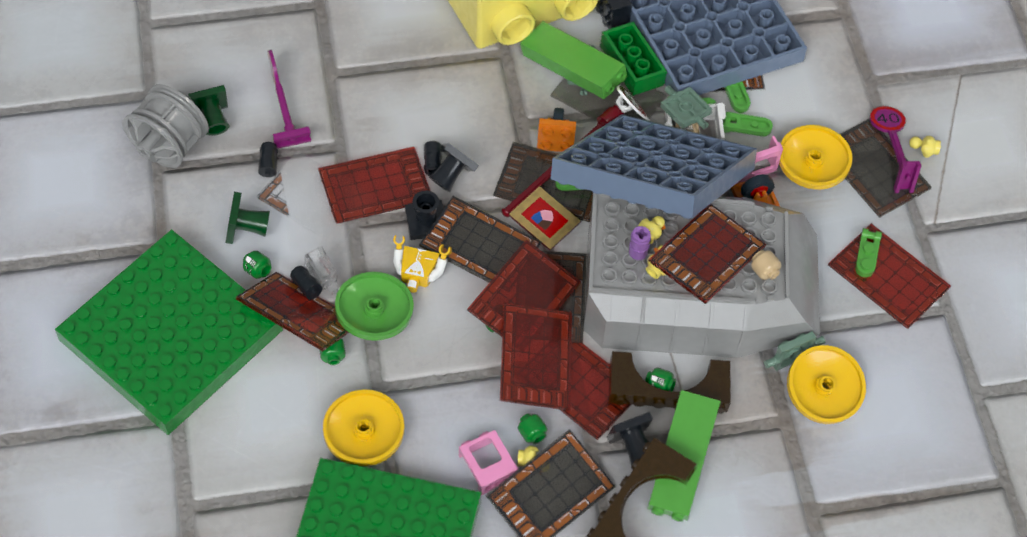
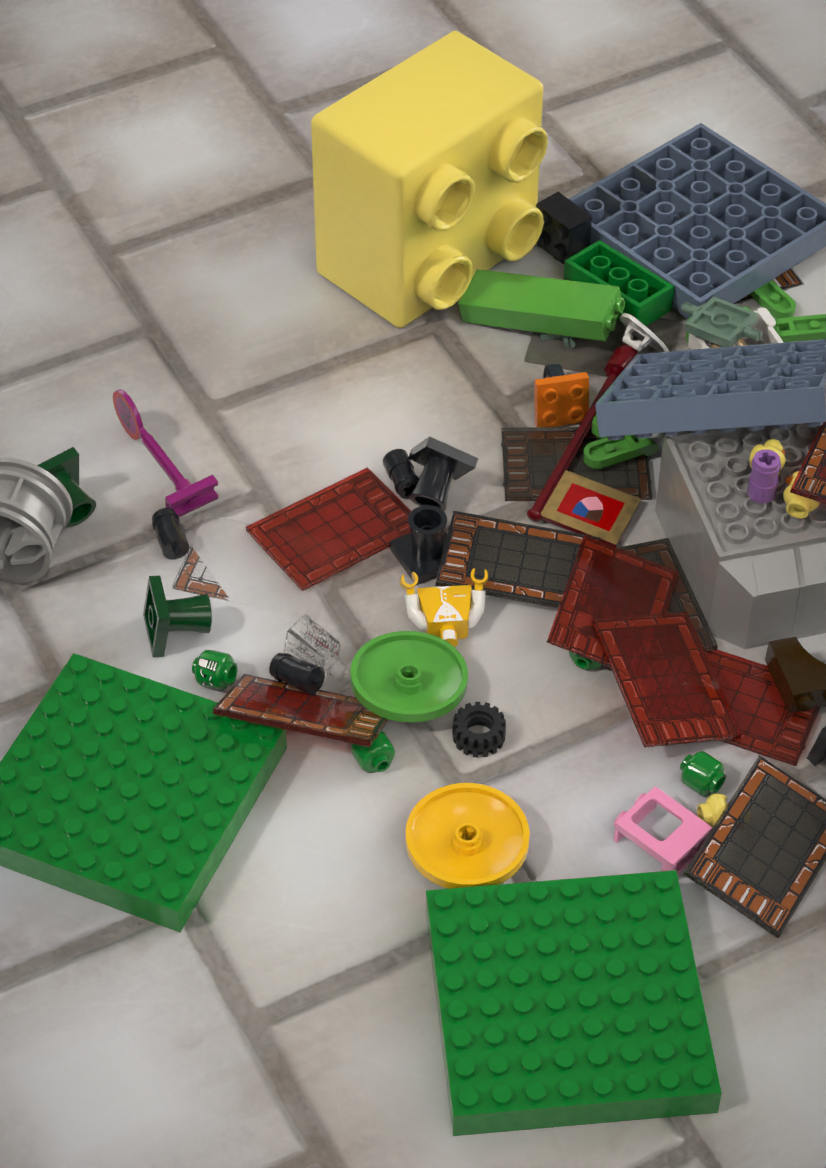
camera: 15 degrees left, 10 degrees down
(404, 344) = (474, 742): none -> black tyre

